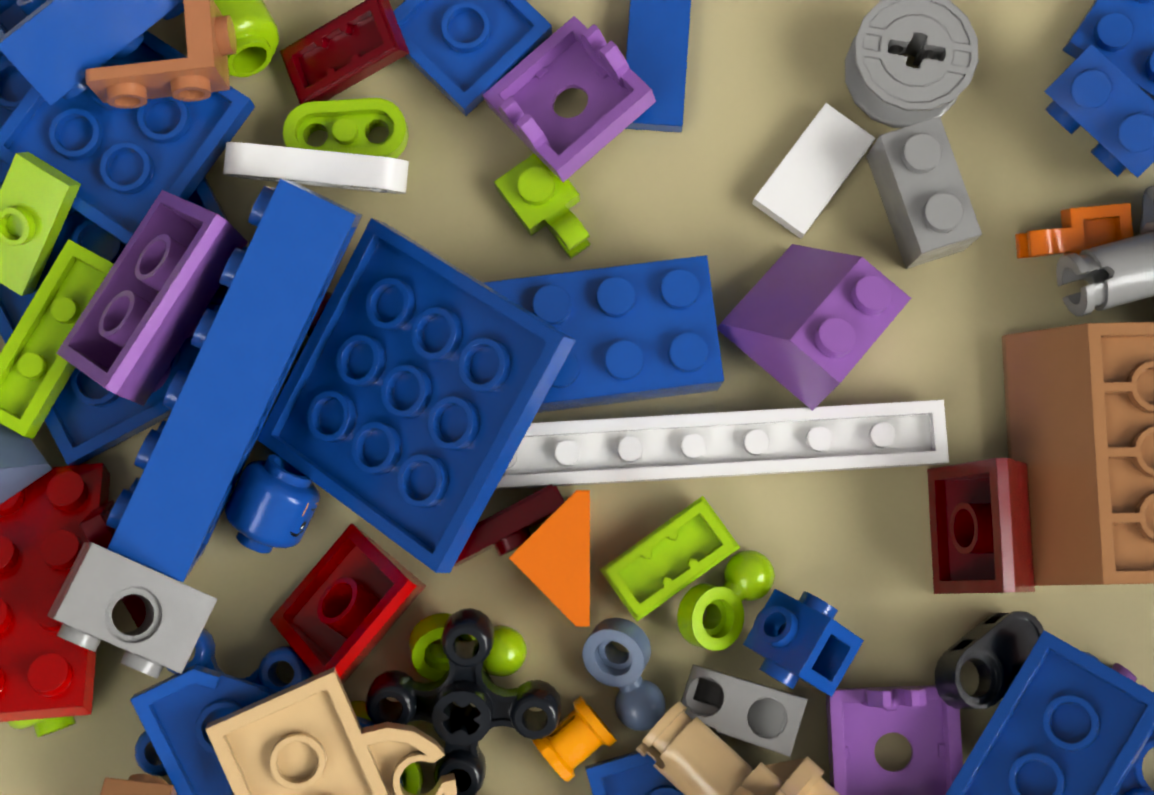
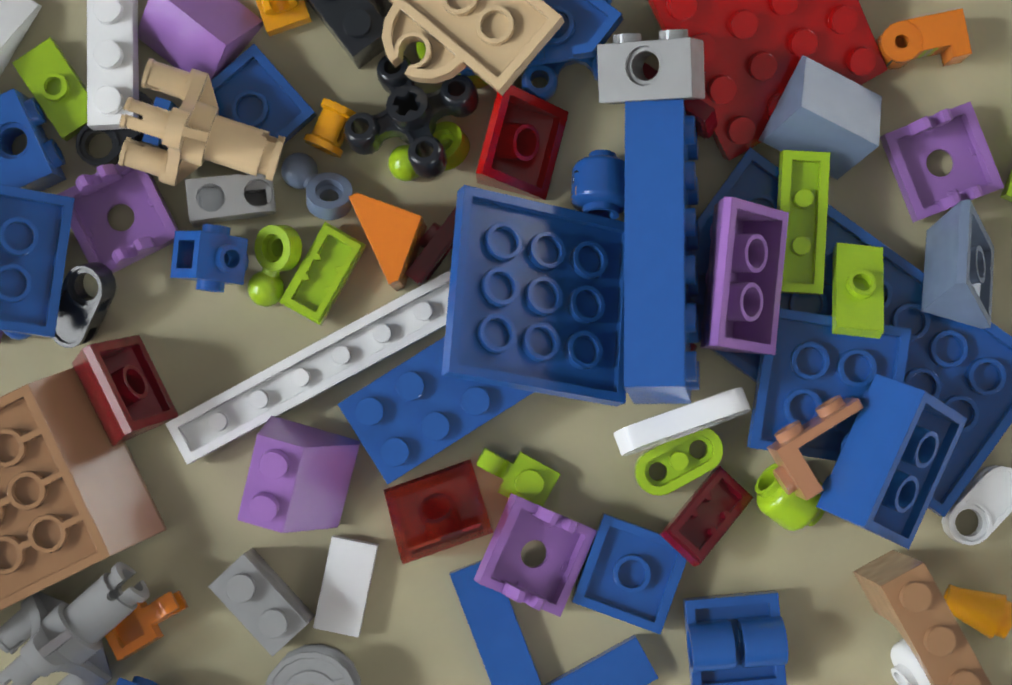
camera: 155 degrees right, 5 degrees up
(661, 199) = (438, 511): none -> clear red slope

